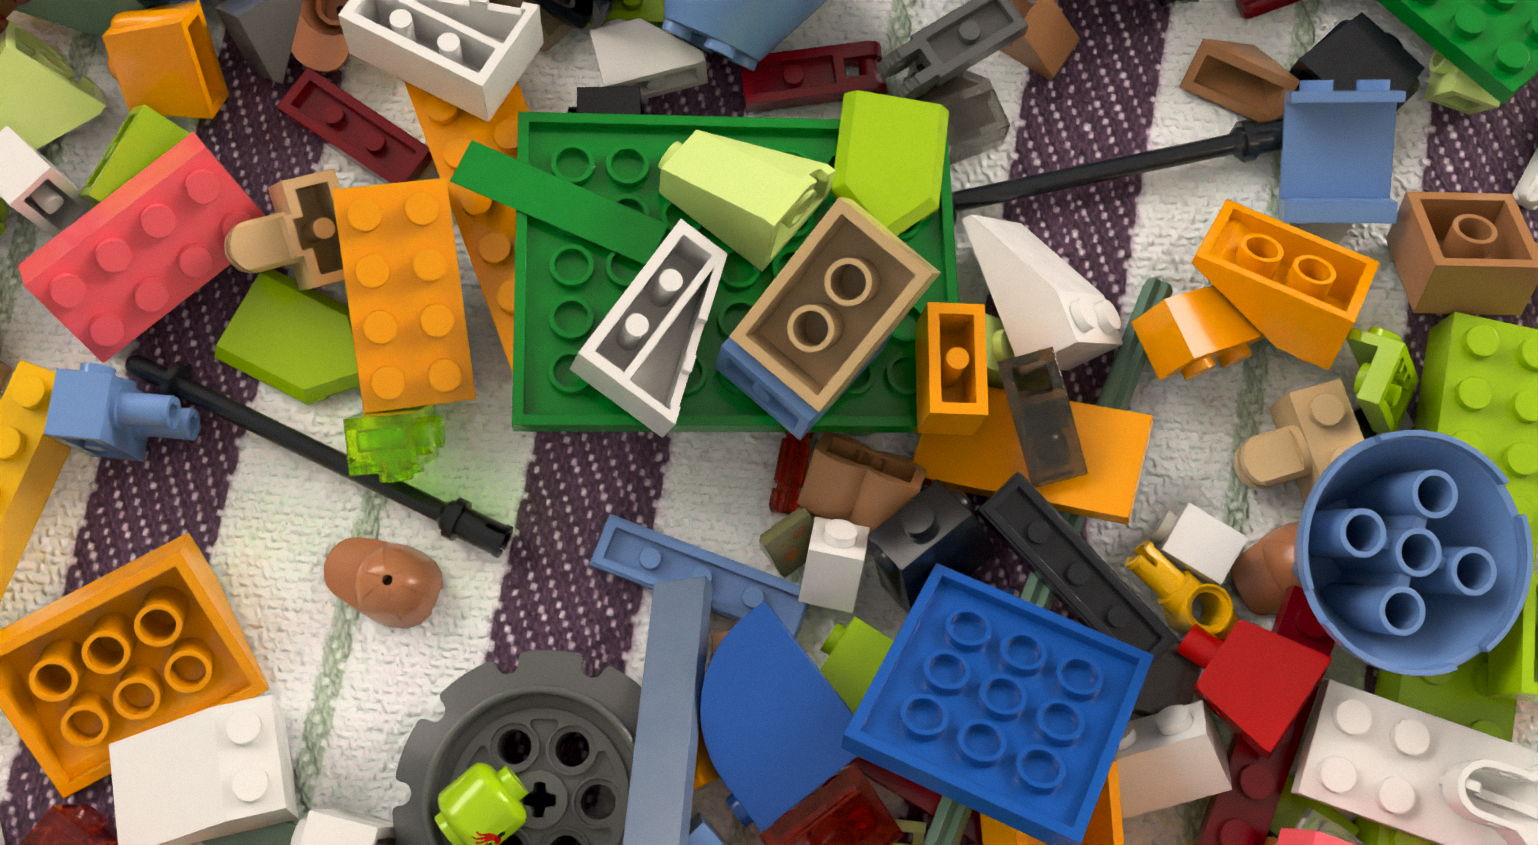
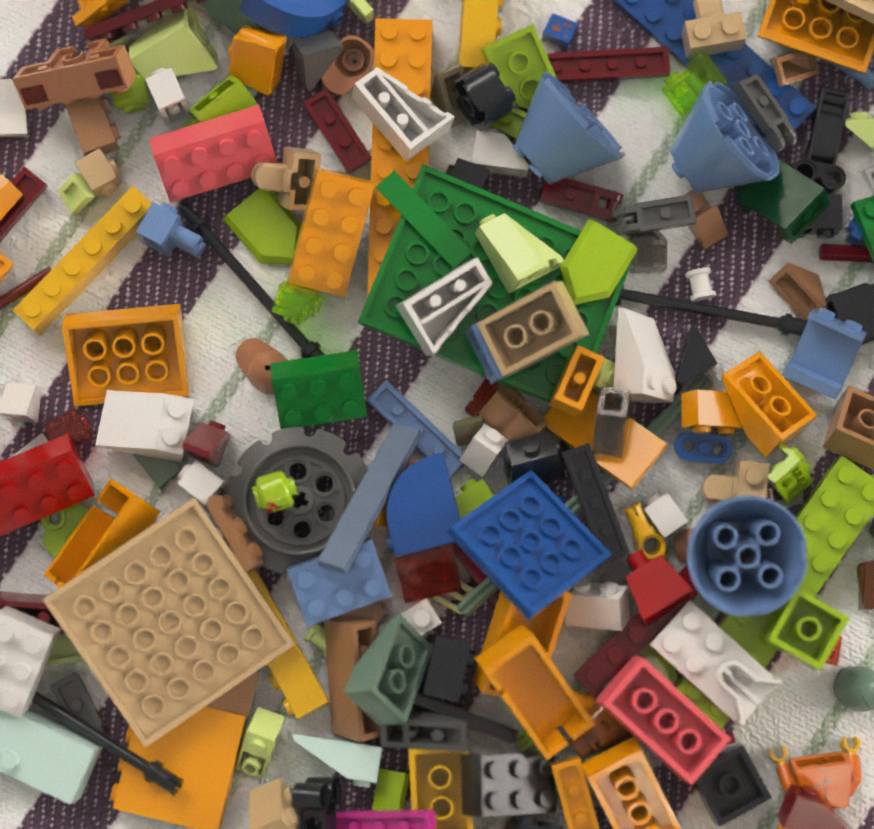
camera: 20 degrees right, 5 degrees up
(325, 764) = (207, 442): none -> dark red slope
(493, 582) = (318, 389): none -> green brick
(1074, 133) = (700, 284): none -> white bush
(1121, 253) = (695, 358): none -> black slope
(1205, 402) = (703, 447): none -> blue plate

